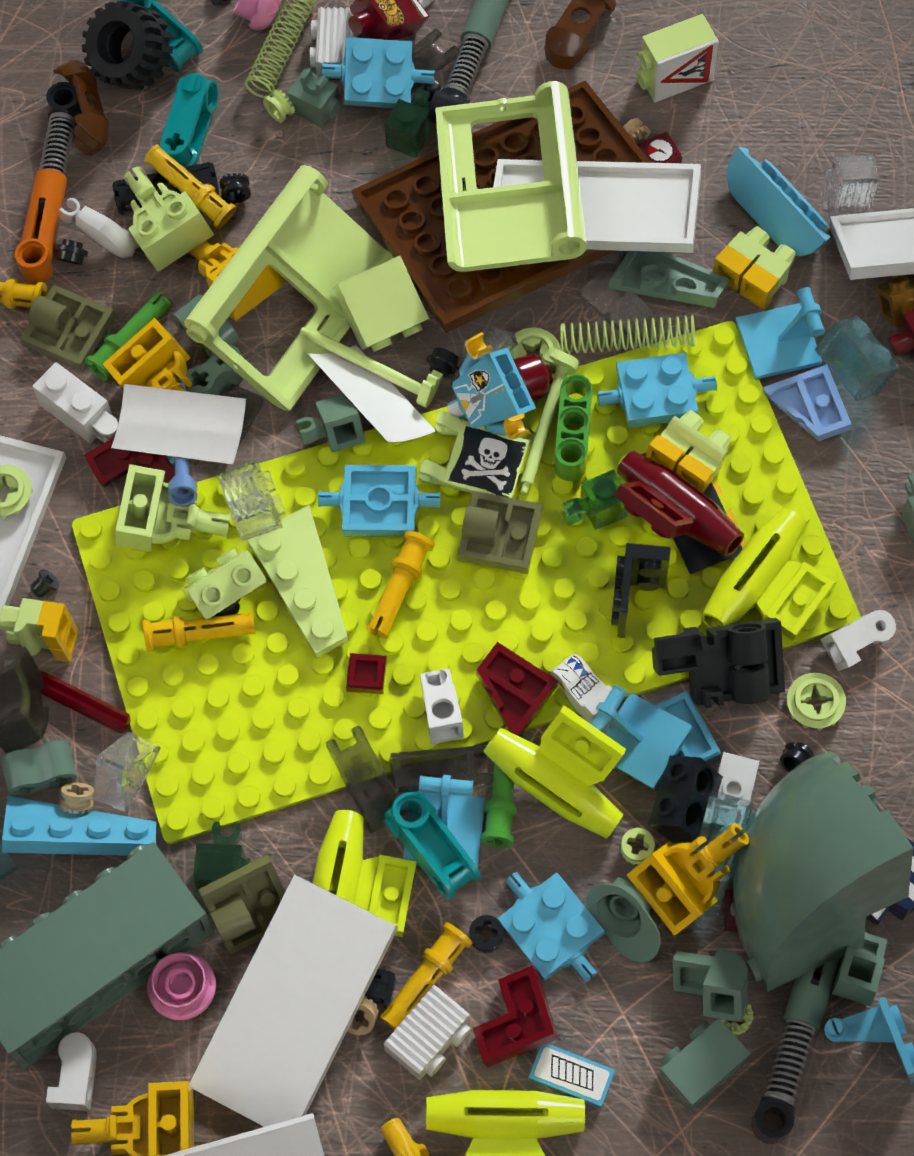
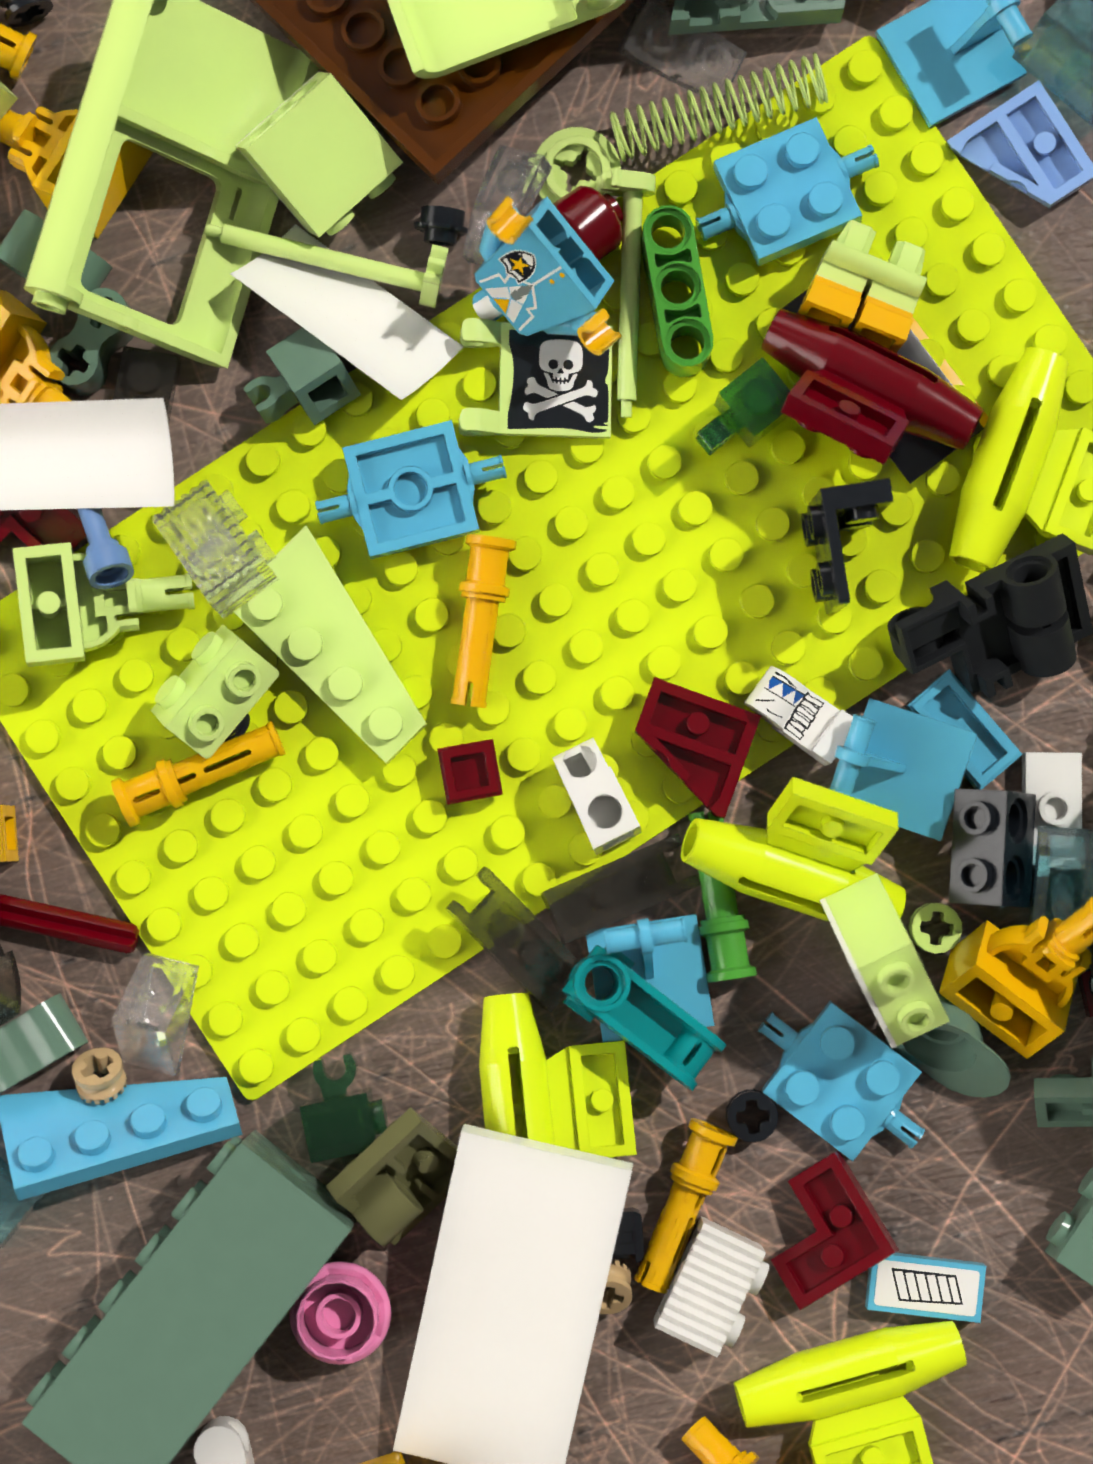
camera: 15 degrees left, 20 degrees up
(499, 532) = (610, 494): olive plate -> none
(594, 841) = (884, 960): none -> yellowish green piece

